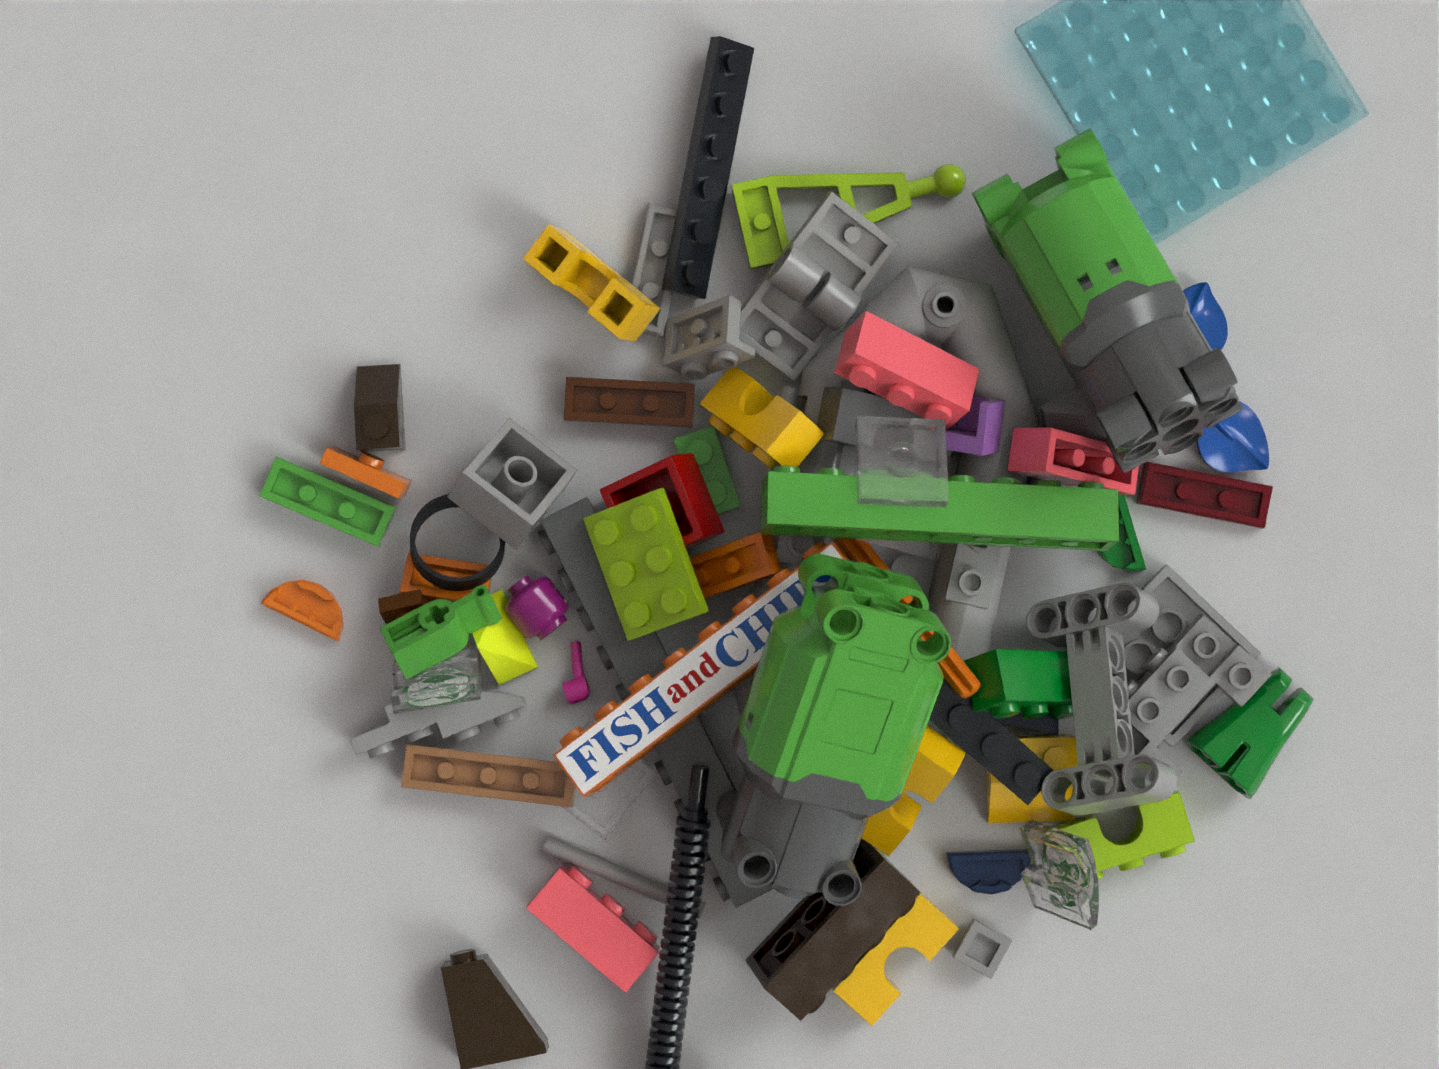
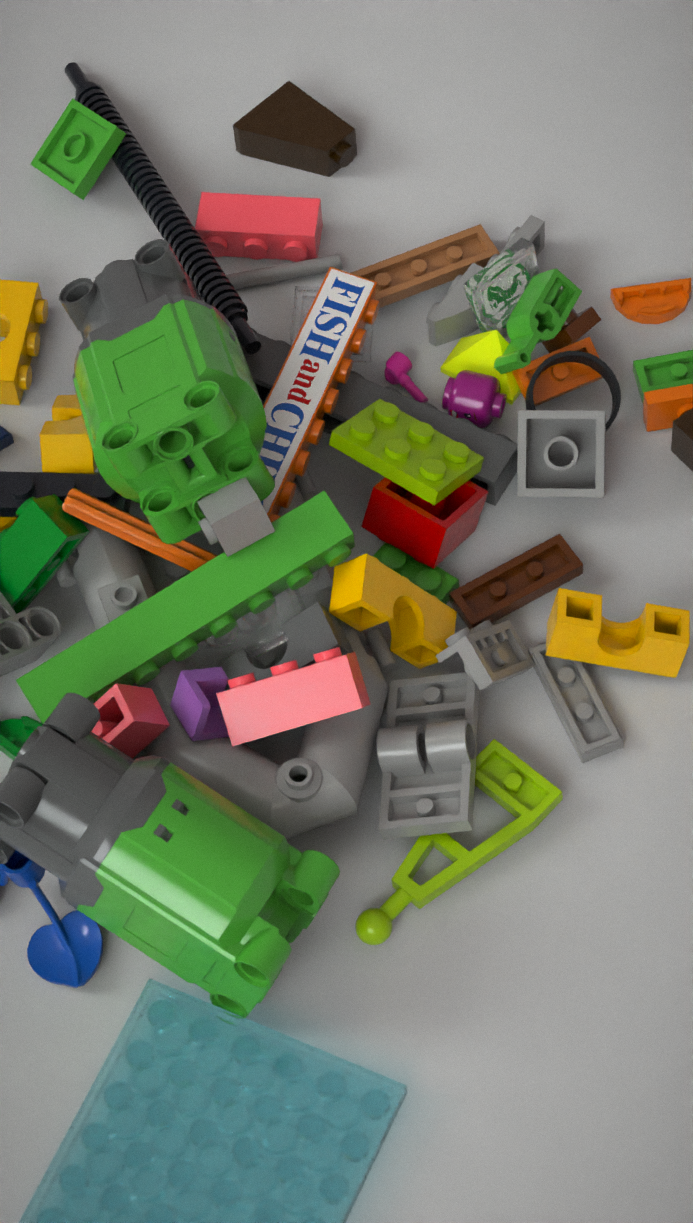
camera: 155 degrees right, 30 degrees down
(708, 168) = (595, 799): black plate -> none
(736, 564) = (347, 490): orange plate -> none
(823, 941) = (48, 334): dark brown slope -> none
(860, 544) = (234, 517): none -> light grey brick
(901, 461) = (246, 614): clear tile -> none

